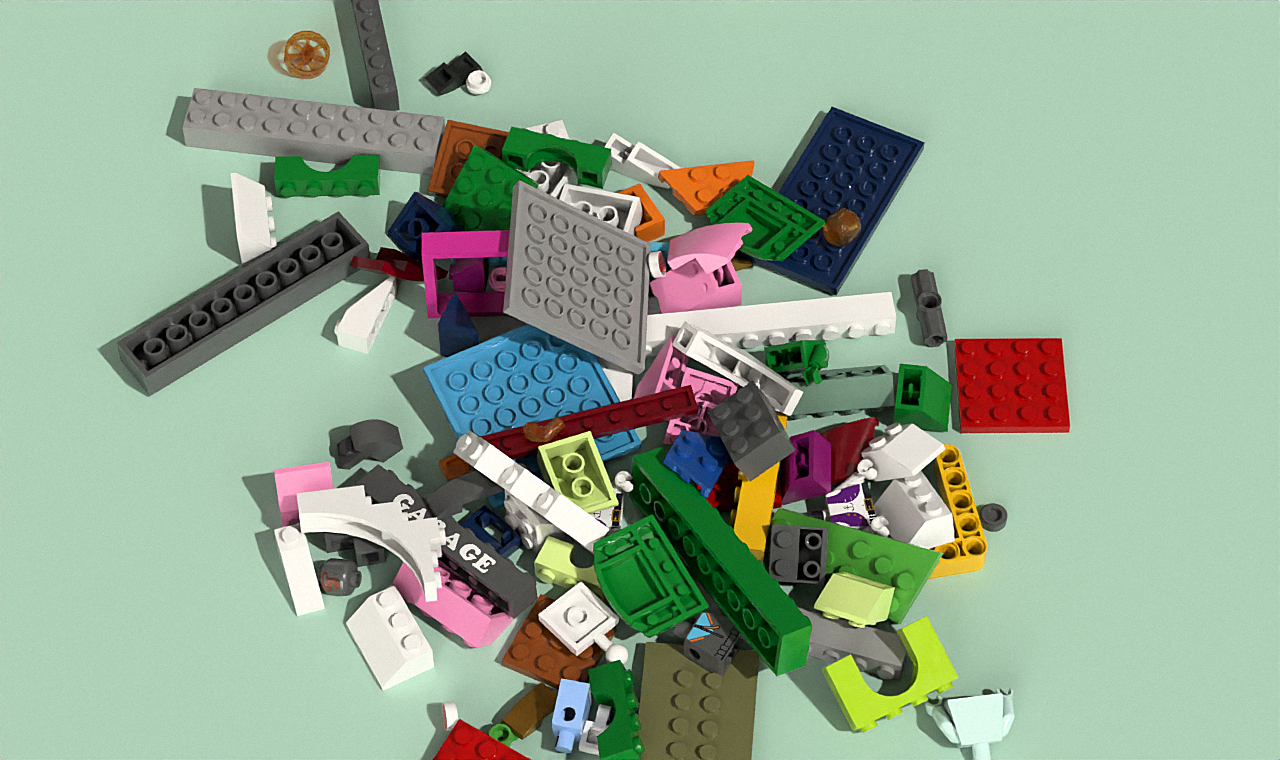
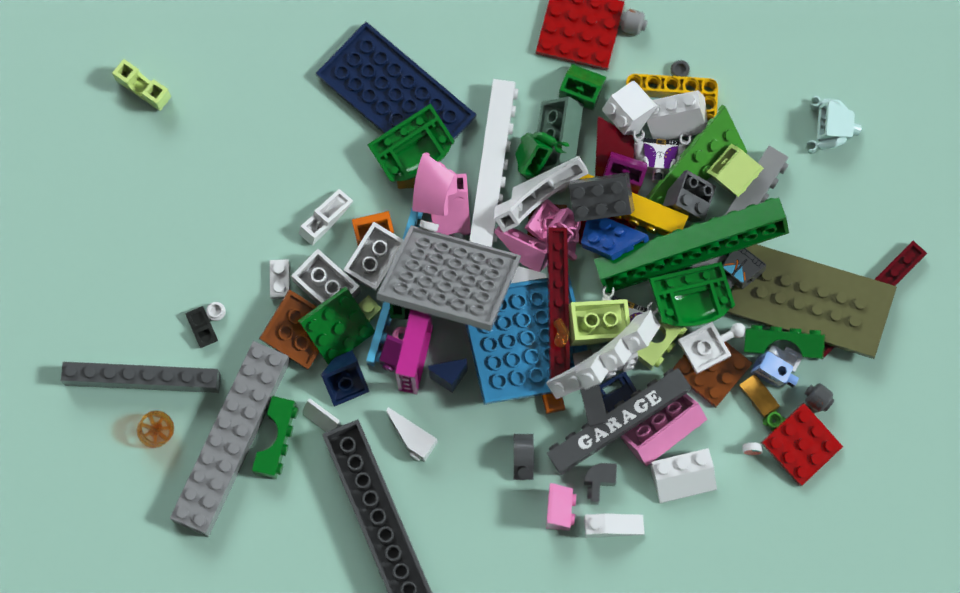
camera: 75 degrees left, 20 degrees up
(252, 219) = (305, 499): white slope -> none
(339, 576) = (626, 498): dark grey head -> none
(352, 513) = (610, 455): white arch -> none
(372, 216) = (320, 416): none -> white slope
(395, 264) = (378, 404): dark red slope -> none
(528, 148) = (335, 248): green arch -> none
(704, 185) = (362, 173): orange wing -> none
(841, 227) = (431, 93): clear orange head -> none
(929, 308) = (518, 61): dark grey piece -> none
(930, 672) = (798, 141): lime arch -> none
(1042, 442) = (633, 22): none -> light grey head

